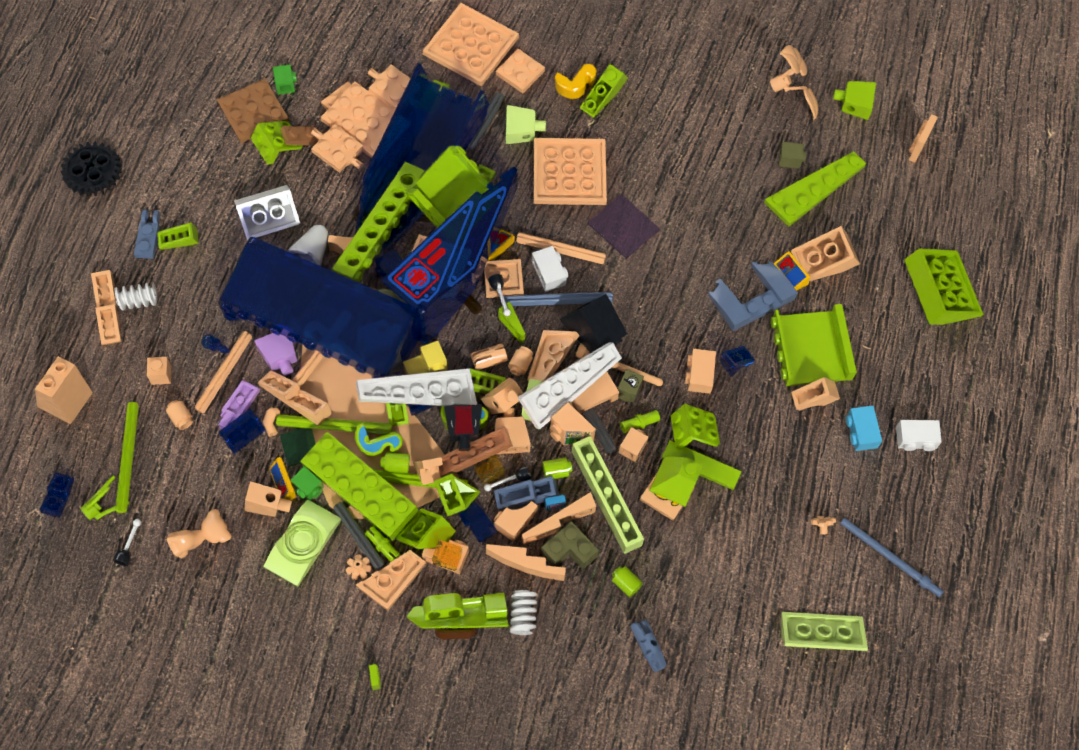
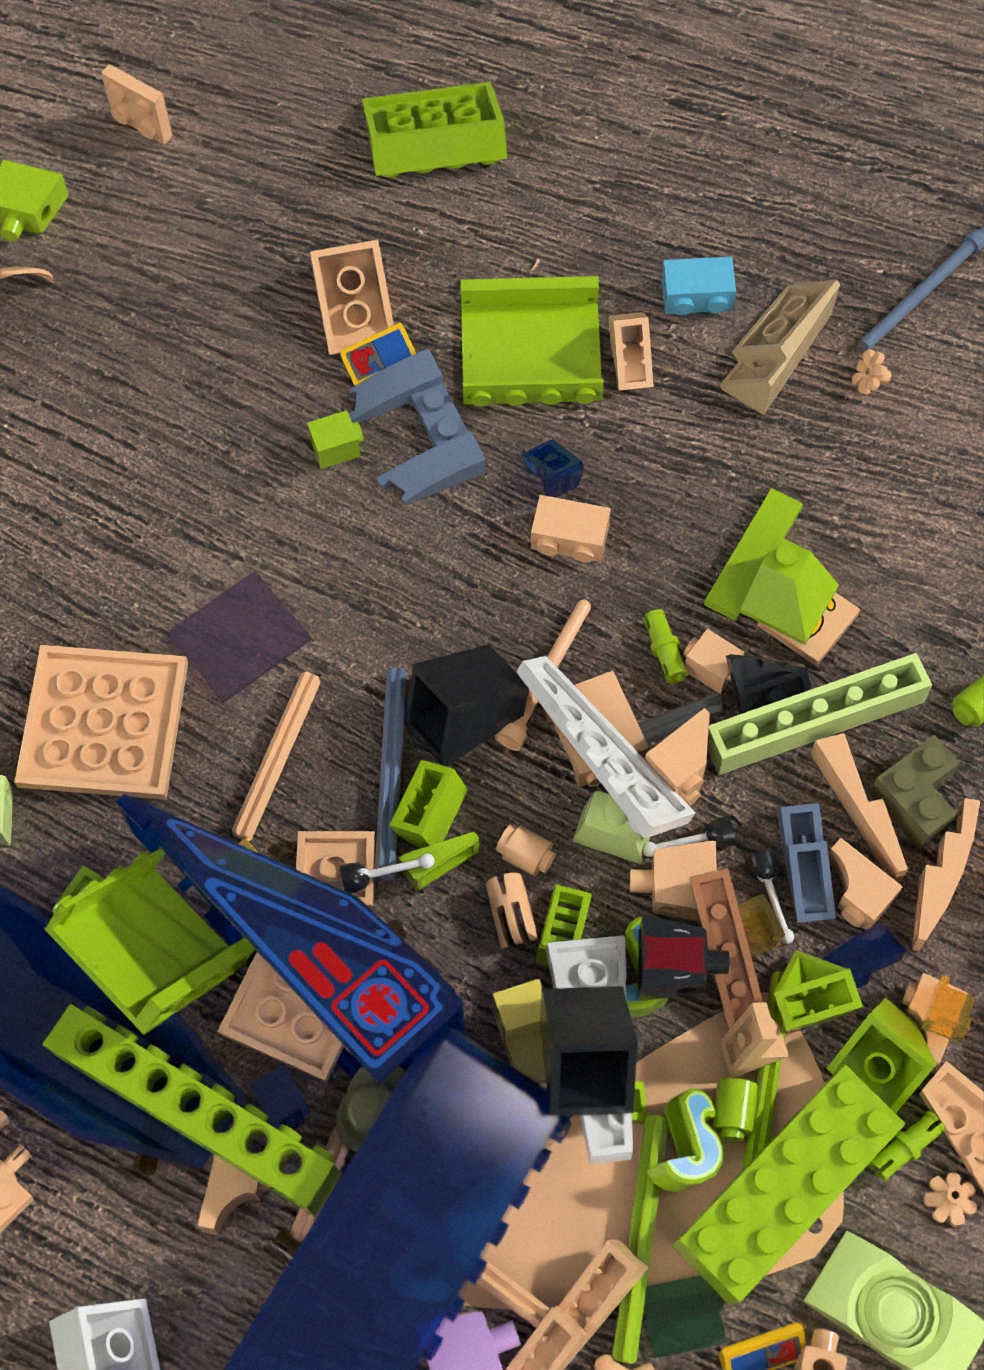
camera: 80 degrees left, 0 degrees up
(307, 484) = (778, 1297): bright green brick -> none
(311, 245) = (225, 1272): white cone -> none
(358, 536) = (885, 1195): dark grey axle -> none
(409, 376) = (588, 1050): none -> black slope
(504, 395) = (608, 883): light nougat torso -> none
(538, 451) = (718, 830): none -> hinge
(539, 315) = (429, 805): none -> lime brick
(549, 268) = (325, 778): white brick -> none
(551, 352) = (517, 792): light nougat wing -> none
(555, 502) = (828, 810): dark azure tile -> none
(557, 468) = (757, 802): lime brick -> none
(622, 469) = (765, 680): none -> black wing
(630, 386) = (593, 653): olive brick -> none
(694, 424) = (686, 554): lime bracket -> none
(737, 255) = (335, 439): none -> lime brick
(791, 155) = (130, 323): olive brick -> none
(806, 193) = (215, 315): lime wing -> none
(834, 474) = (779, 342): none -> tan slope
(918, 434) = (714, 207): white brick -> none

